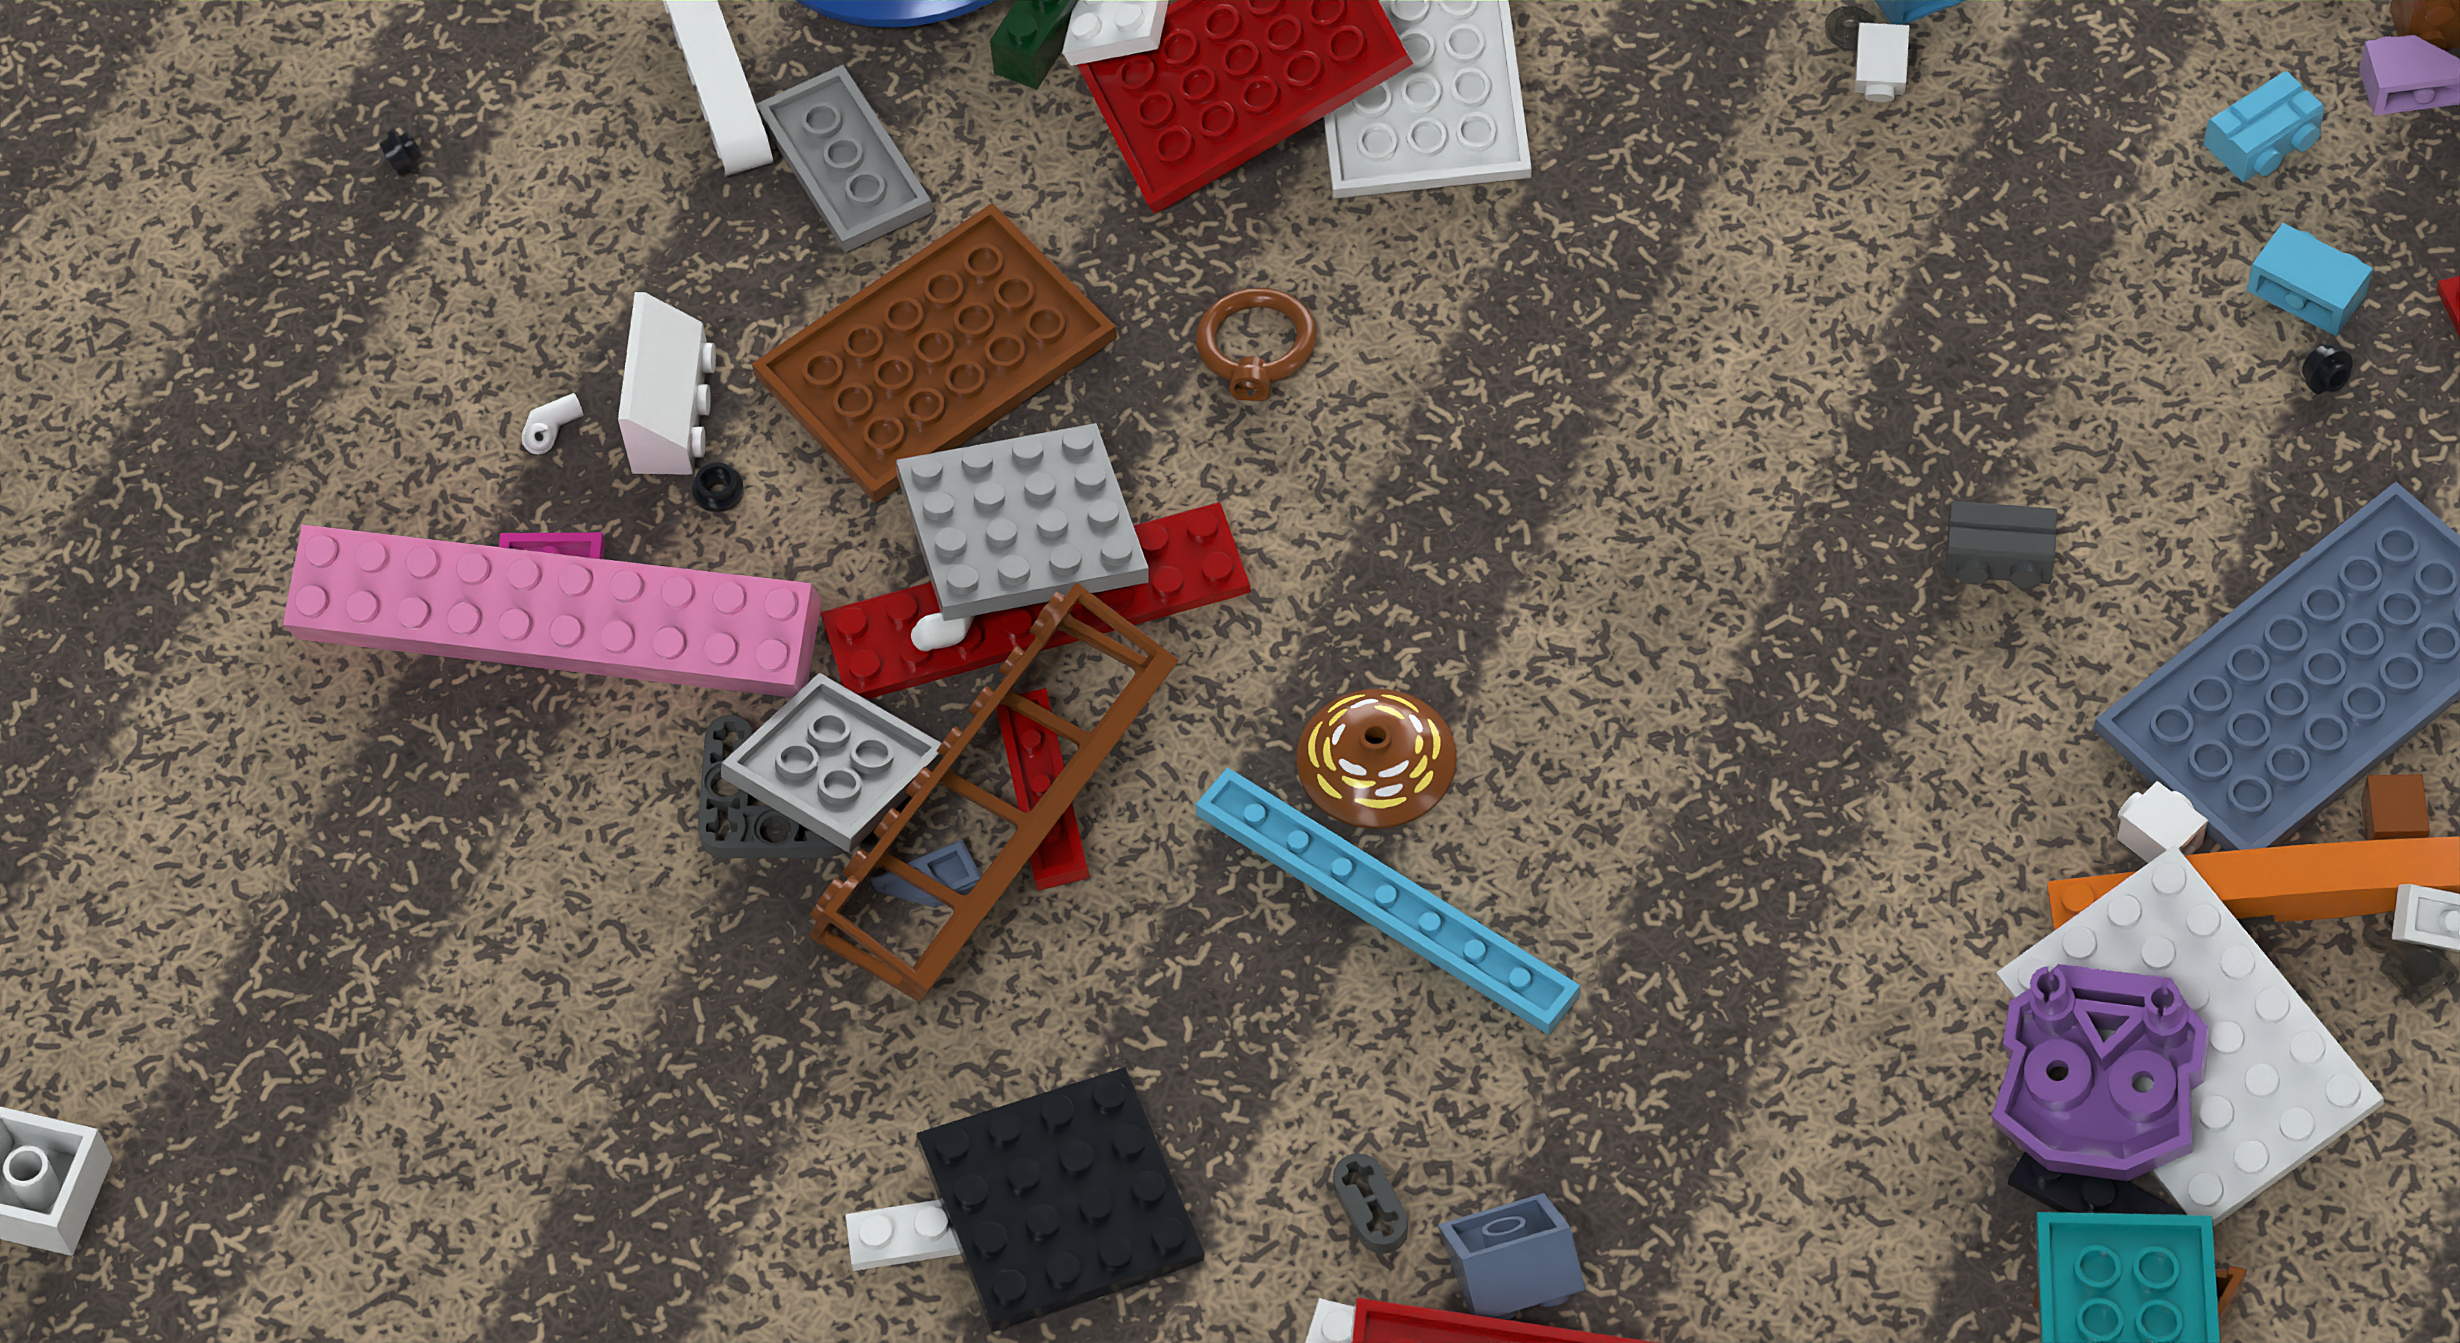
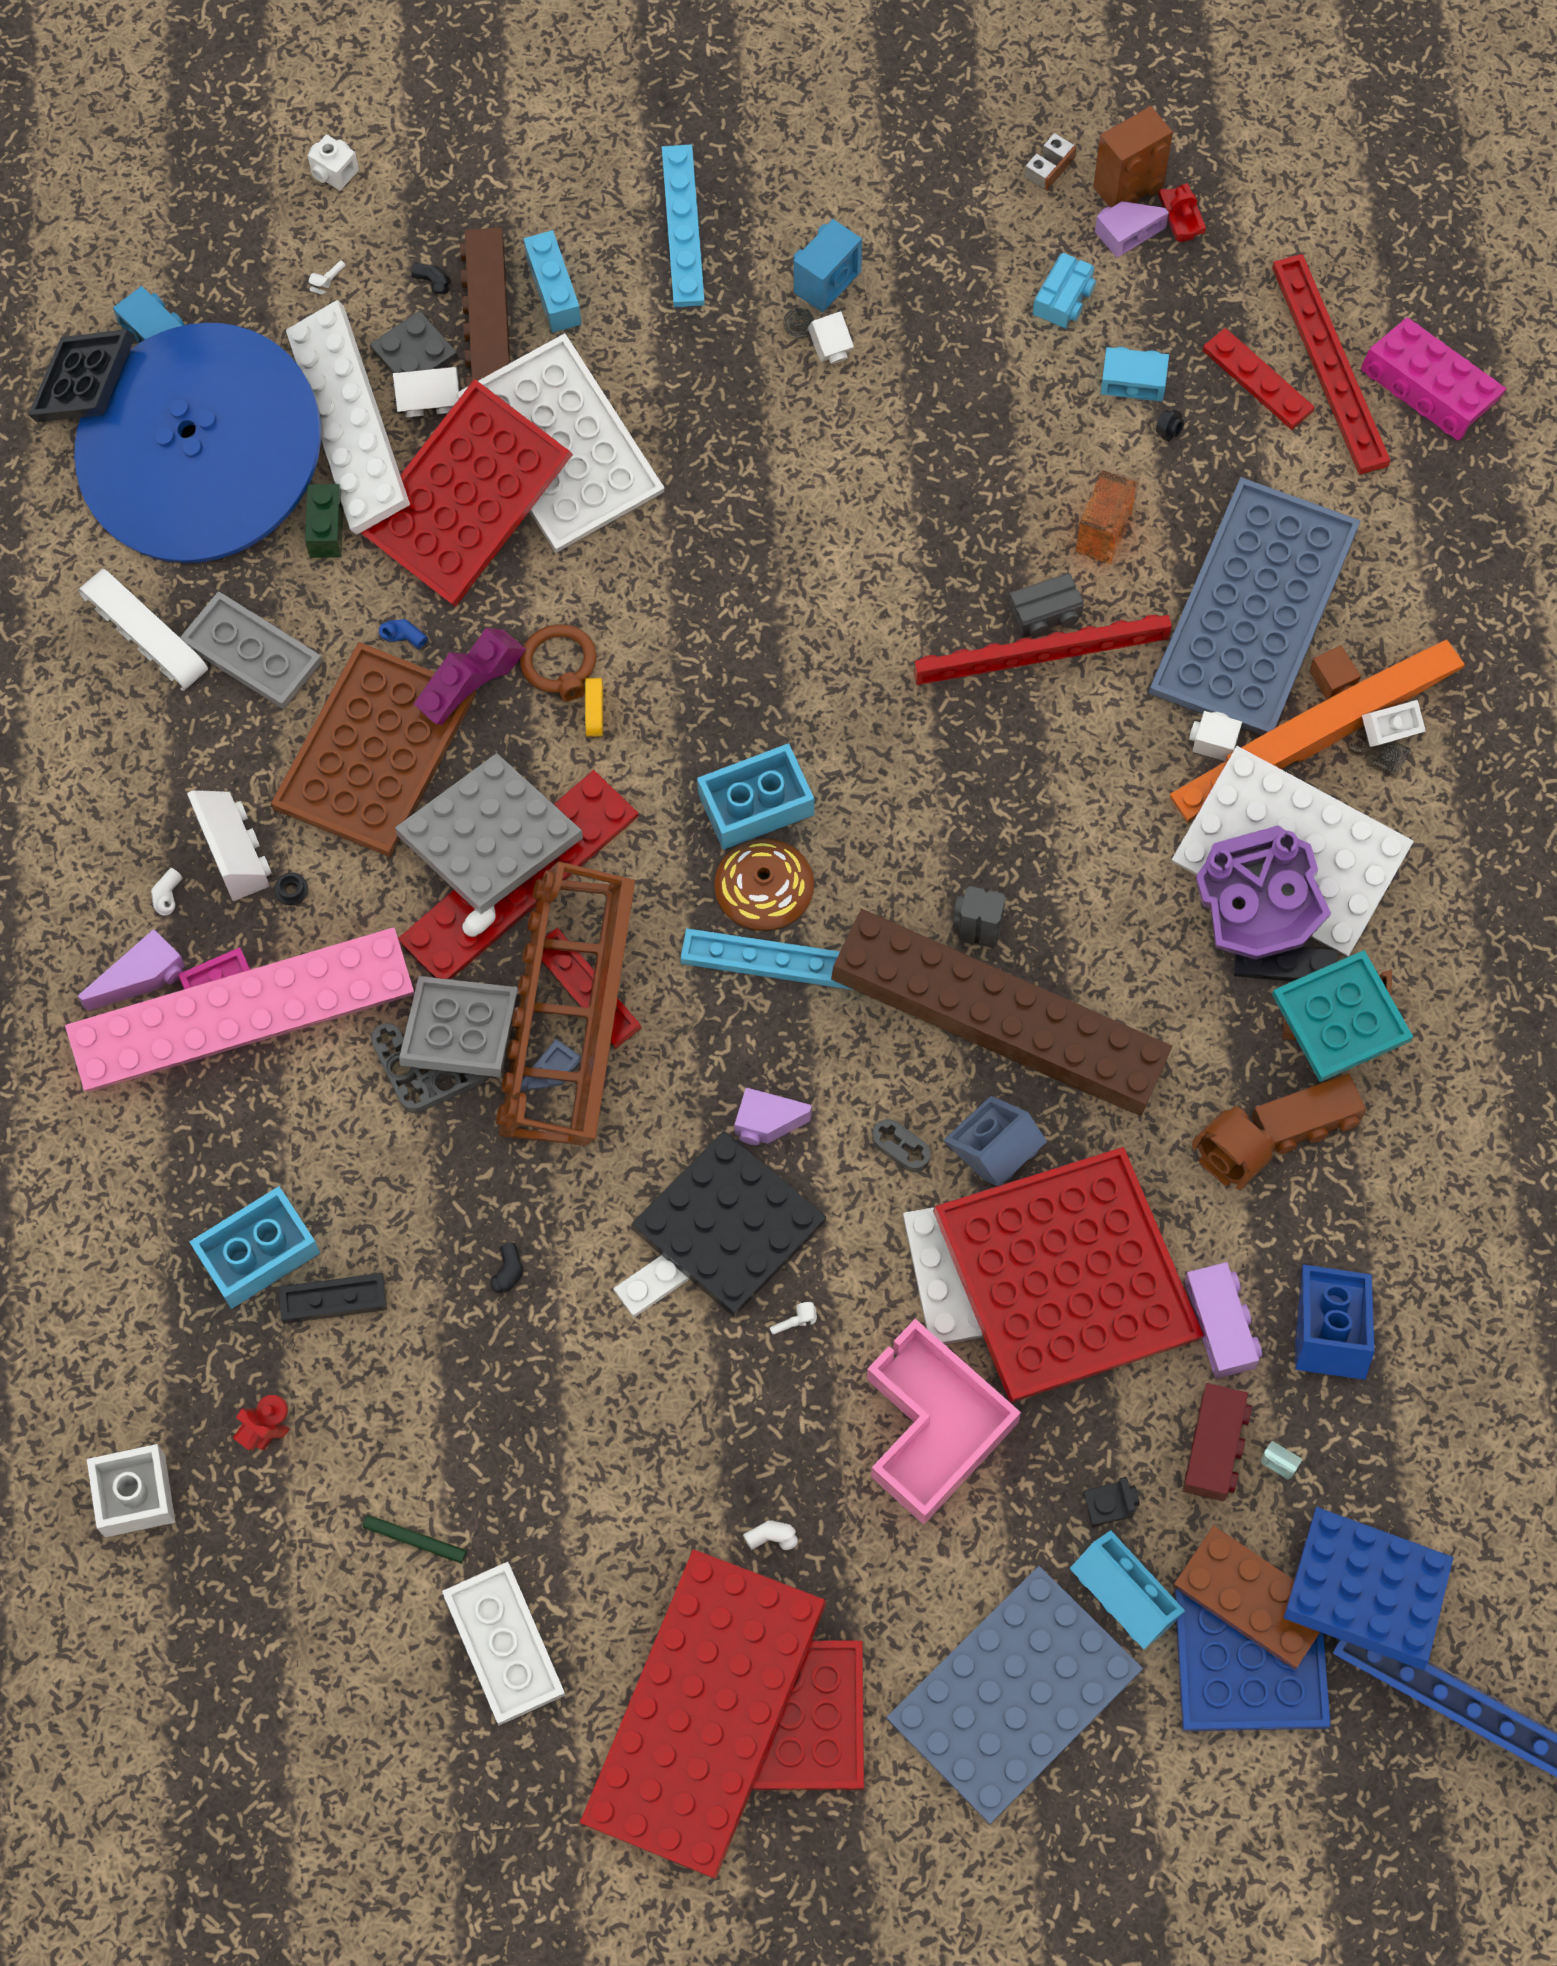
camera: 30 degrees left, 10 degrees up
(254, 1172) = (262, 1423): none -> red hips
(386, 933) = (255, 1247): none -> medium azure brick
(454, 506) = (137, 972): none -> lavender slope
(454, 1051) = (332, 1298): none -> black plate
(715, 1127) = (511, 1270): none -> black arm
(1060, 214) = (402, 630): none -> blue arm
(1097, 295) = (463, 673): none -> magenta arch
(1197, 1075) = (768, 1117): none -> lavender slope
(1267, 418) = (594, 707): none -> yellow beam
(1424, 628) = (755, 796): none -> medium azure brick
(1618, 1079) = (1000, 1012): none -> reddish brown brick
(1658, 927) = (979, 916): none -> dark grey brick
(1963, 601) = (1045, 649): none -> red plate
(2153, 451) = (1106, 516): none -> clear orange piece

